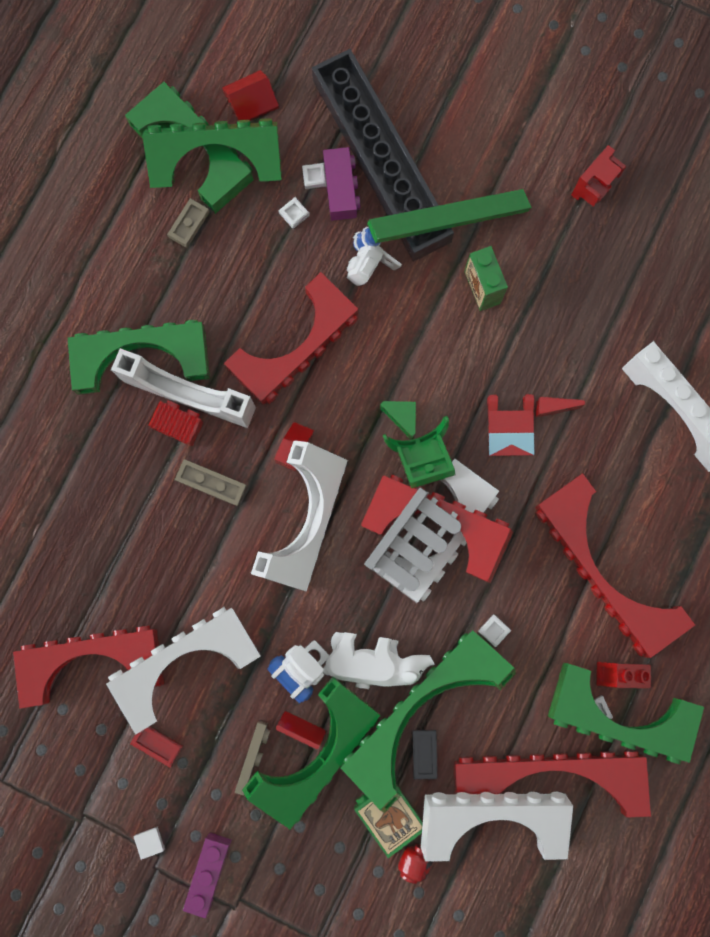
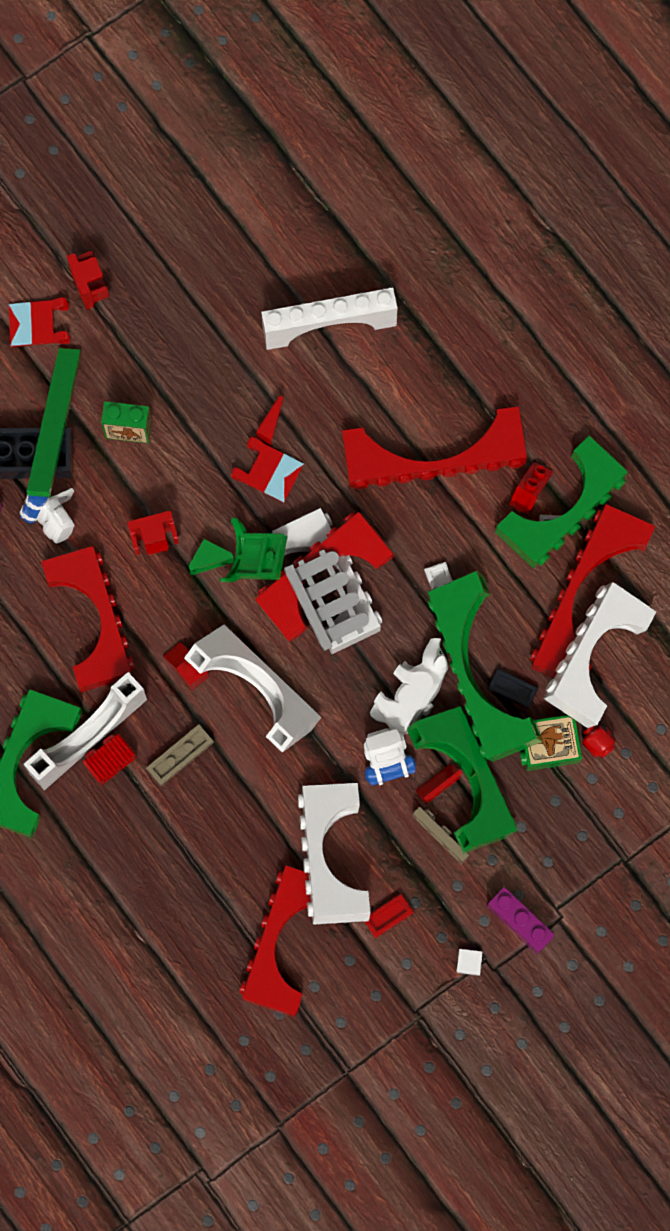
camera: 65 degrees left, 5 degrees down
(397, 354) = (152, 532): none -> red panel
(533, 157) = (34, 323): none -> red flag

